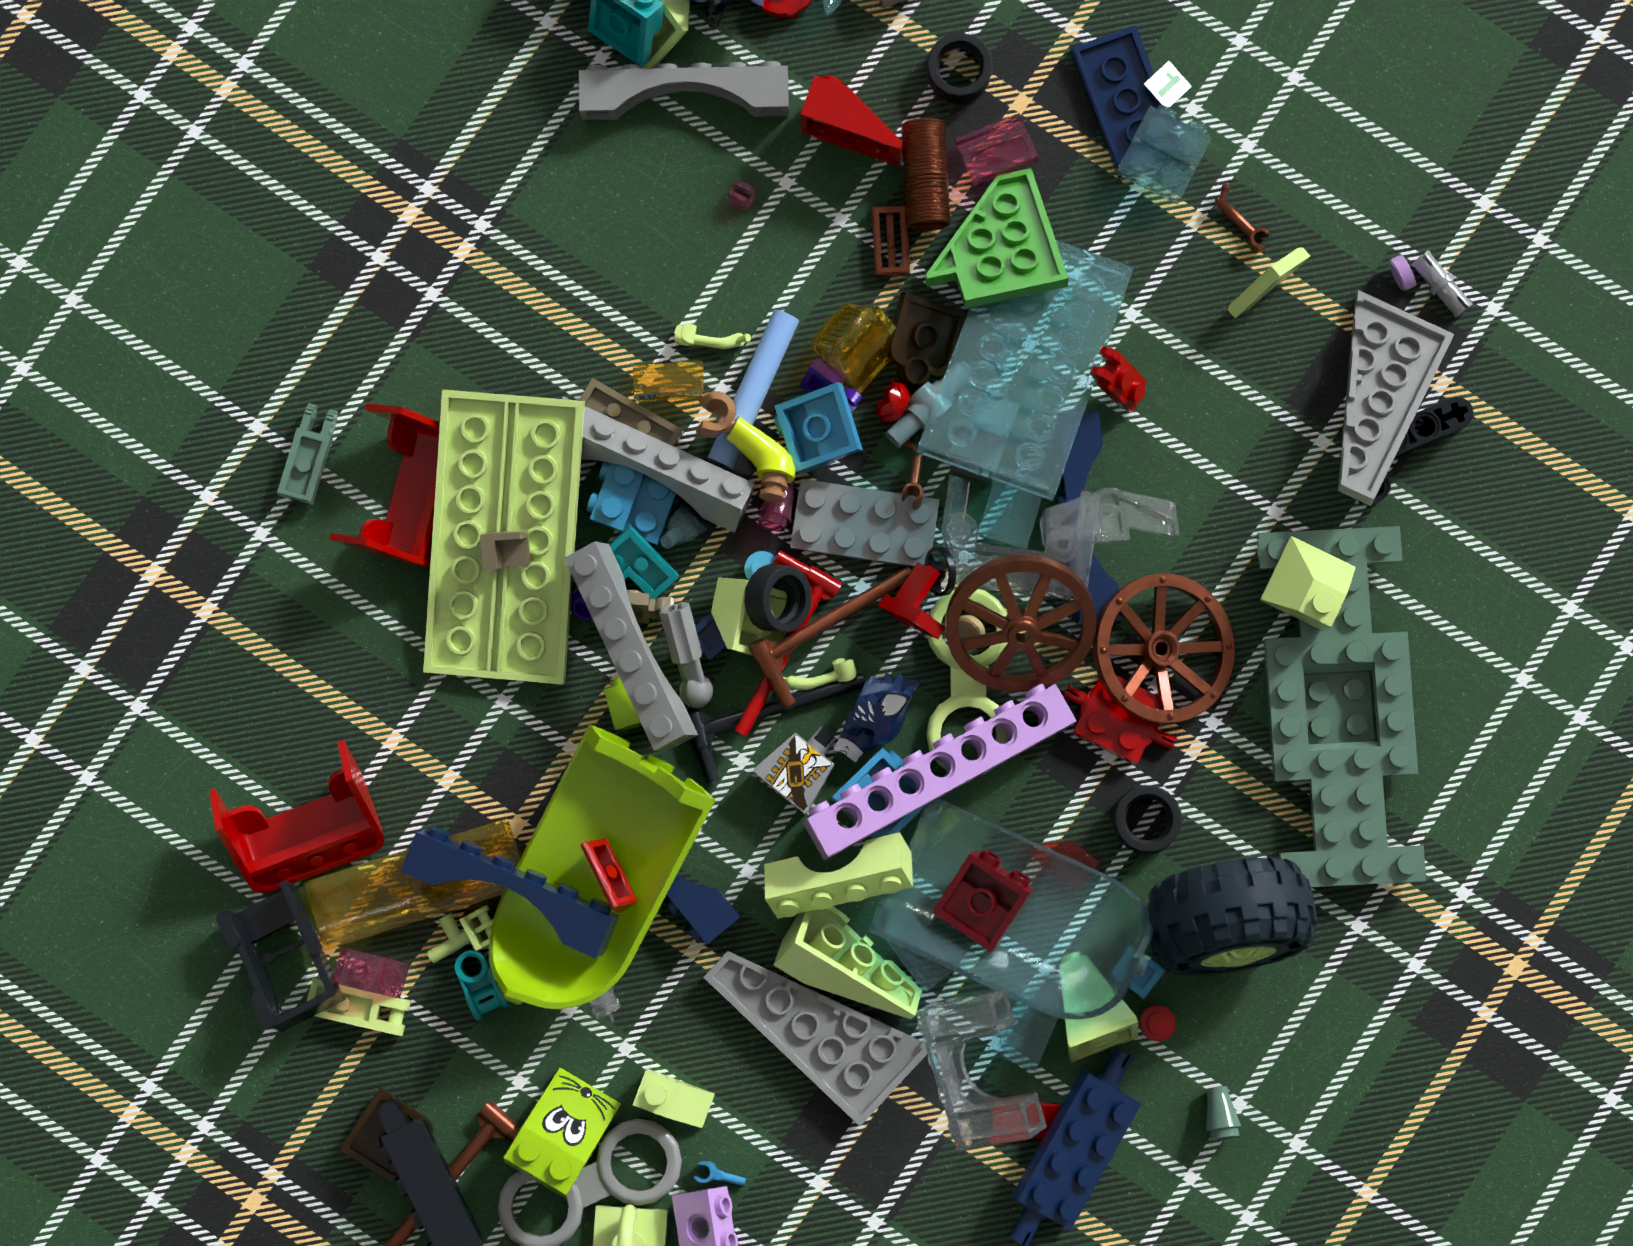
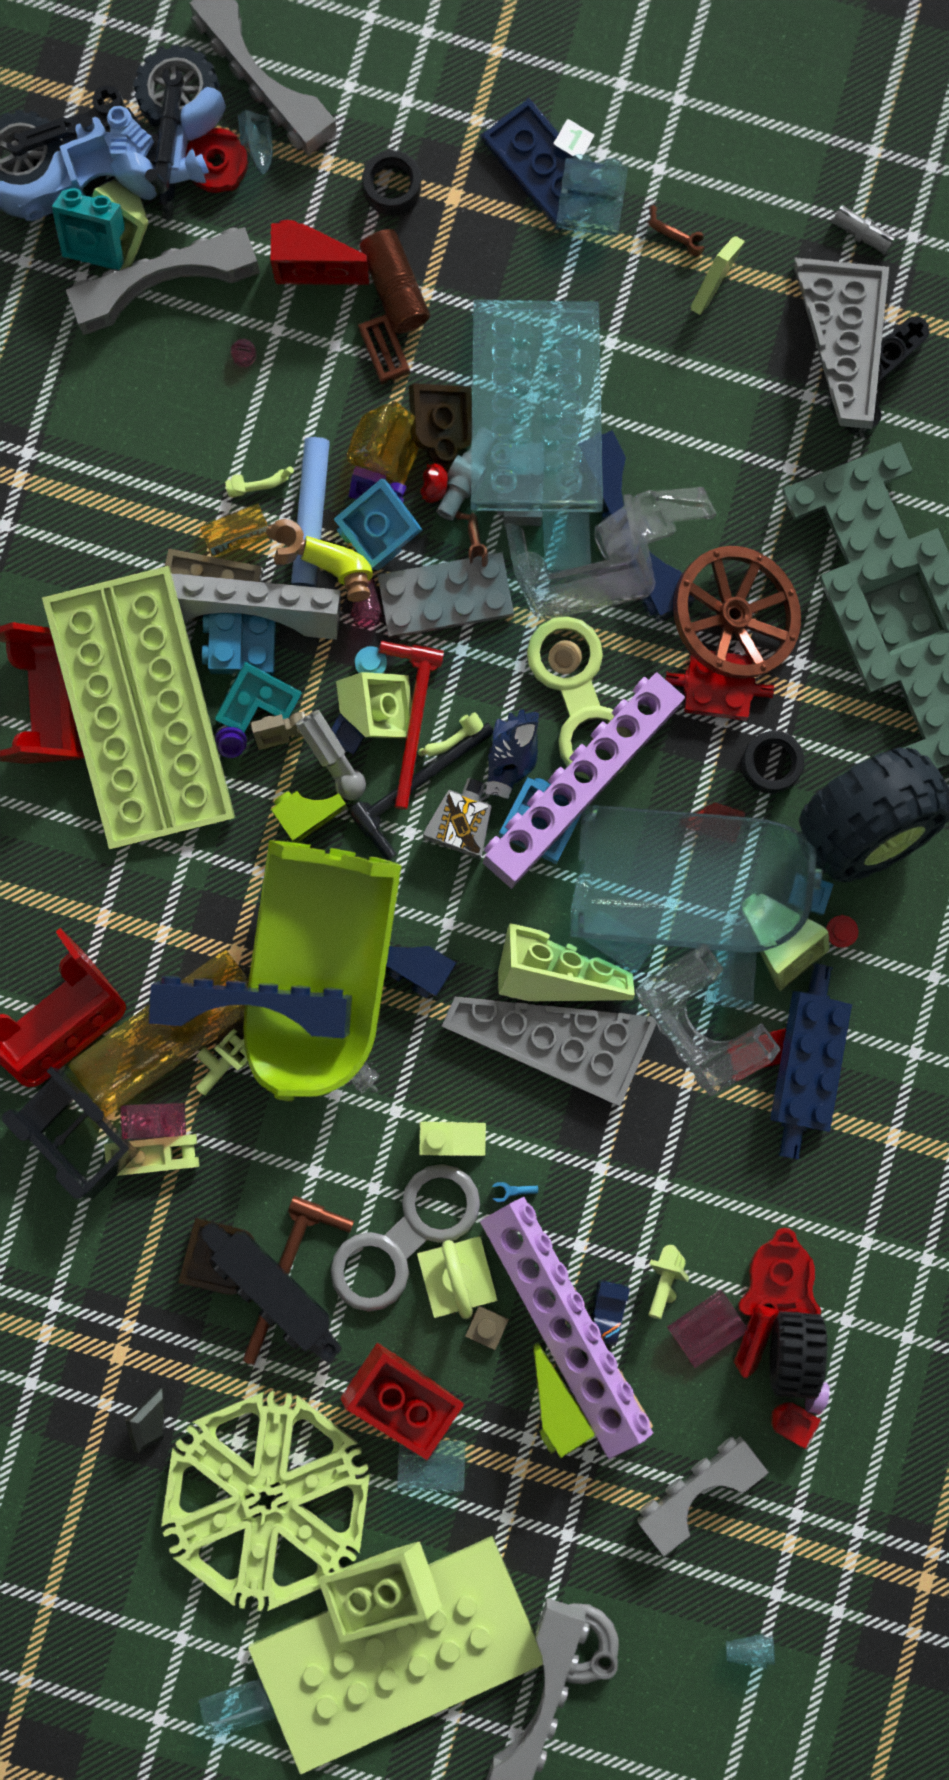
camera: 25 degrees left, 0 degrees up
(479, 986) = (252, 1100): teal piece -> none
(505, 549) = (144, 716): dark tan panel -> none
(561, 1132) = (366, 1201): lime slope -> none
(608, 602) = (250, 732): light grey arch -> none
(609, 874) = (331, 963): red slope -> none
(682, 528) = (290, 650): clear light blue piece -> none
(769, 655) = (404, 731): copper bar -> none
(797, 600) = (377, 682): black tyre -> none
(879, 869) = (560, 880): yellowish green arch -> none
(914, 590) = (506, 651): red piece -> none
(984, 899) = (659, 875): dark red plate -> none
(996, 149) = (447, 241): clear pink plate -> none
(1002, 246) = (482, 317): bright green wing -> none
(1020, 620) = (606, 627): copper wheel -> none
(1119, 379) = (620, 396): red hinge -> none
(1221, 1115) = (923, 991): sand green cone -> none
(1309, 584) = (842, 515): yellowish green slope -> none
(1402, 273) = (827, 230): lavender tile -> none

